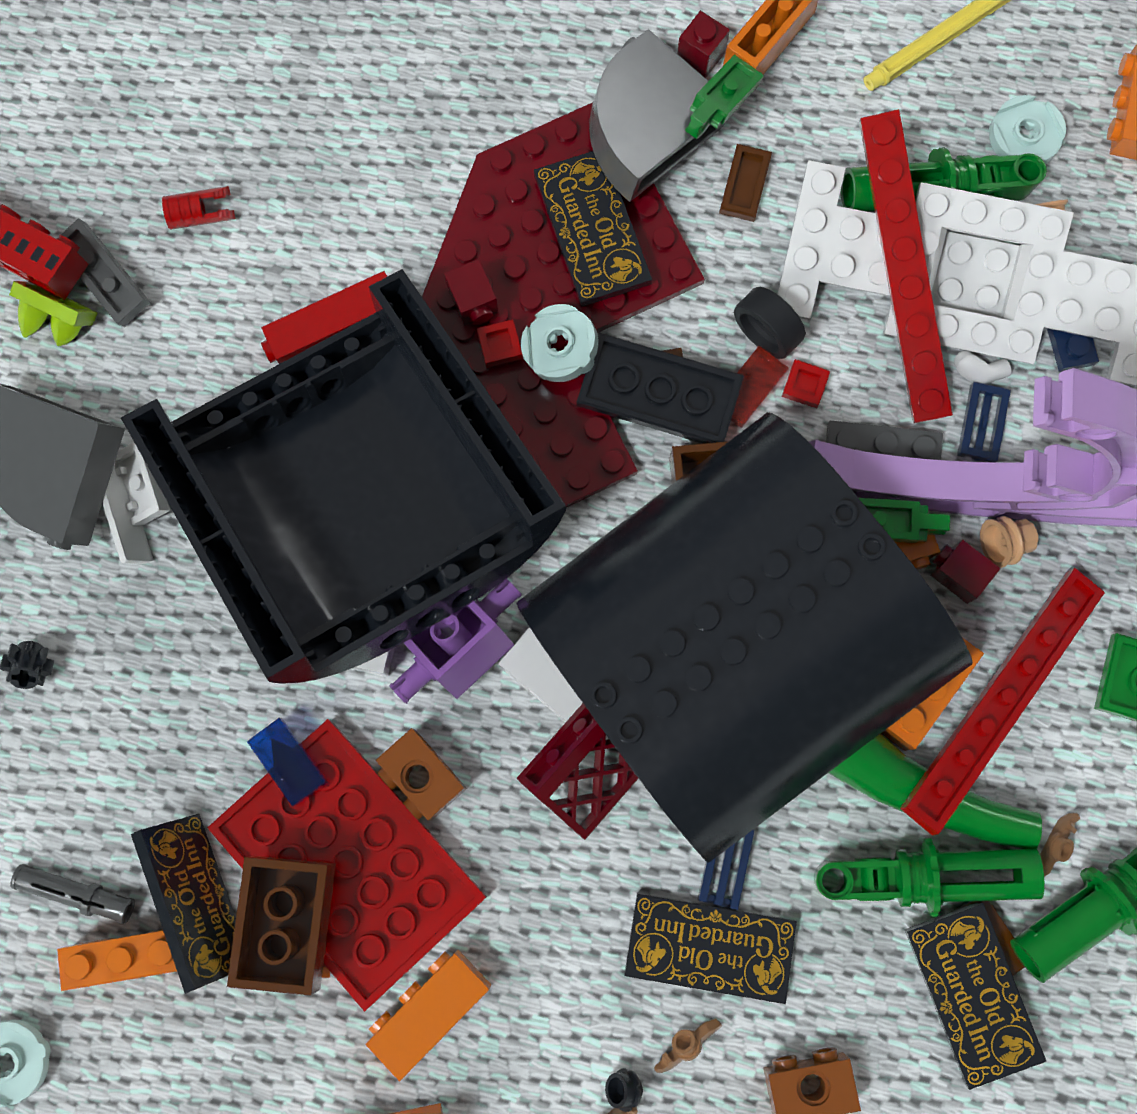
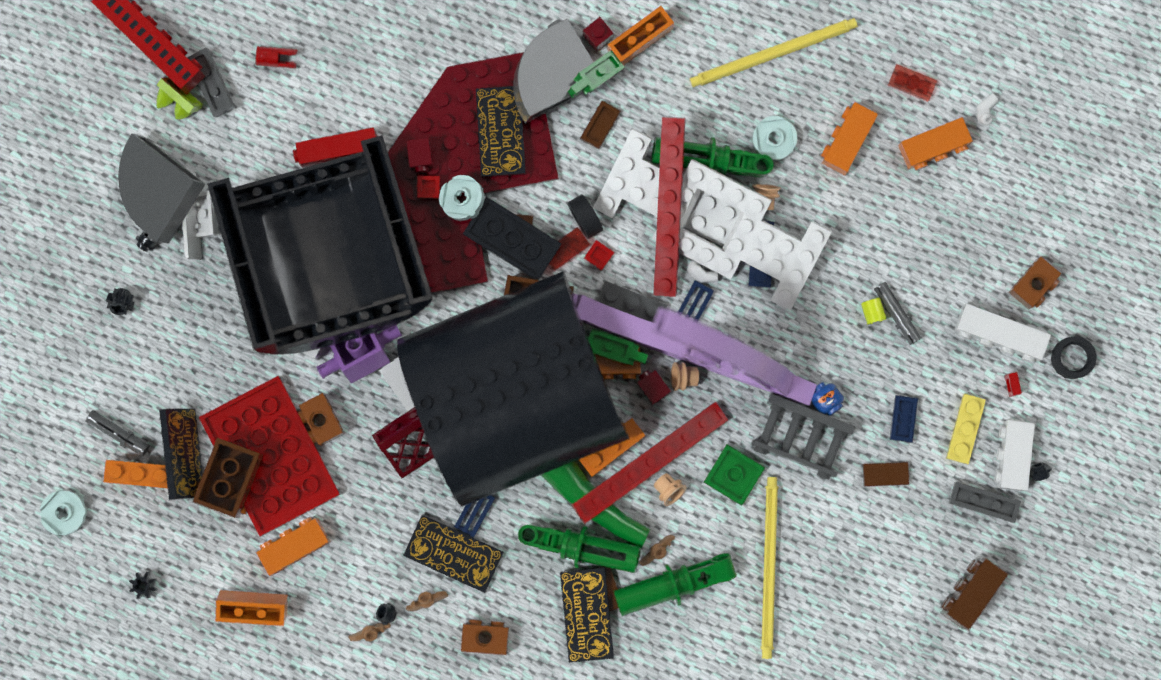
camera: 15 degrees right, 5 degrees up
(49, 556) = (144, 243): none -> black plate
(287, 761) = (250, 393): clear blue tile -> none
(1045, 734) = (669, 488): none -> light nougat piece

